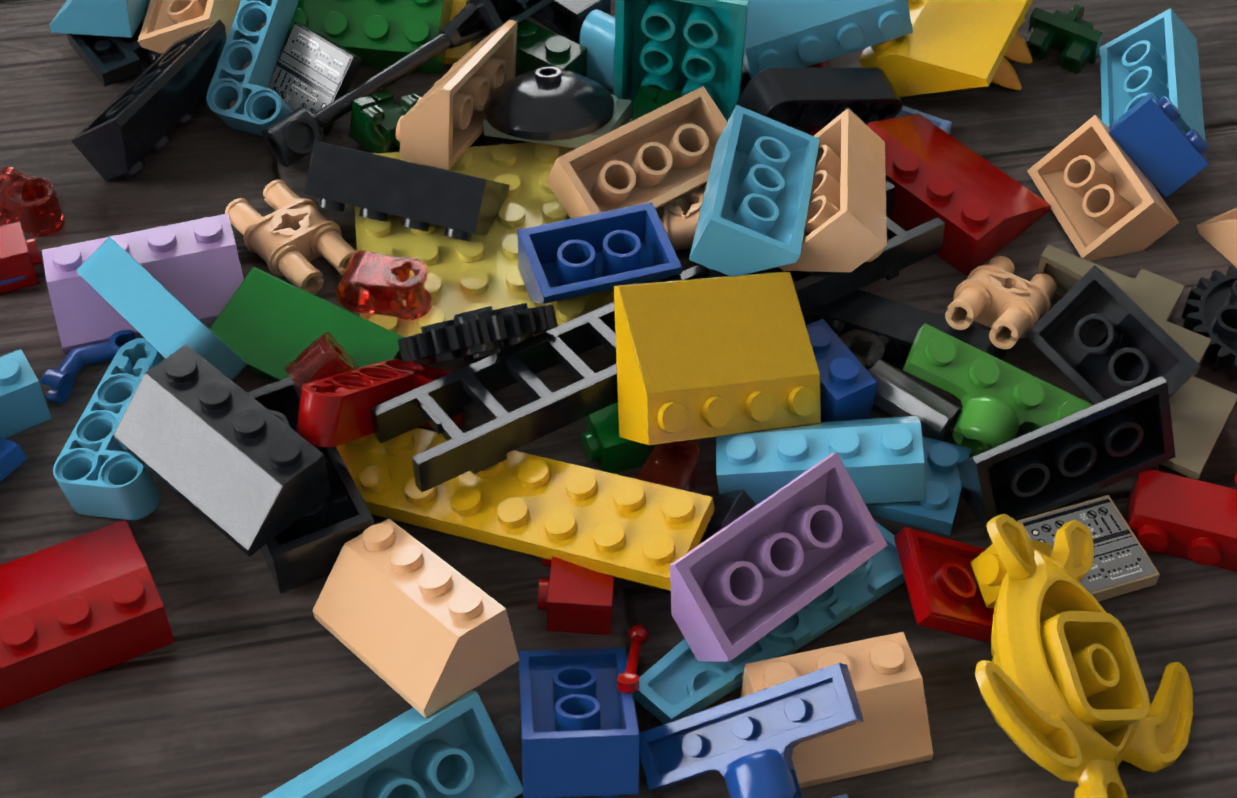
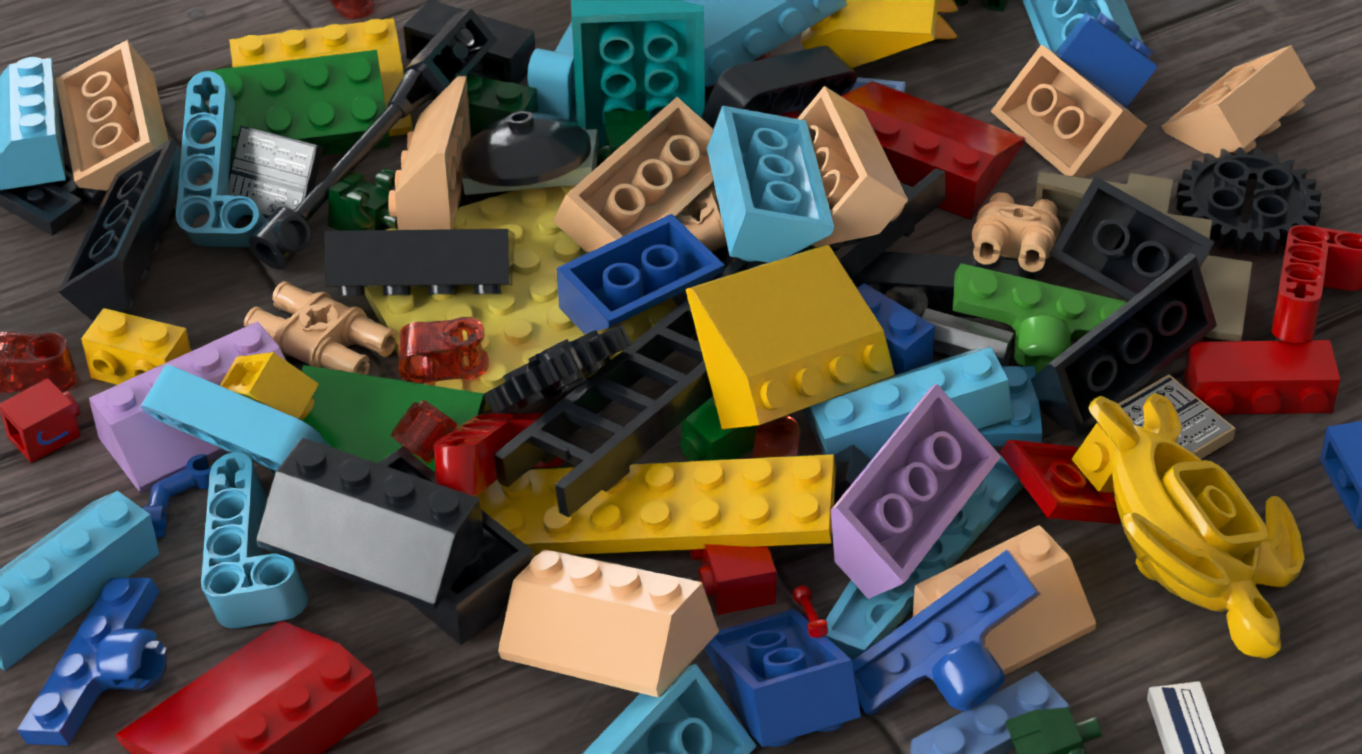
camera: 15 degrees left, 5 degrees down
(108, 206) = (127, 345): none -> yellow brick
(199, 285) = (272, 382): none -> yellow brick

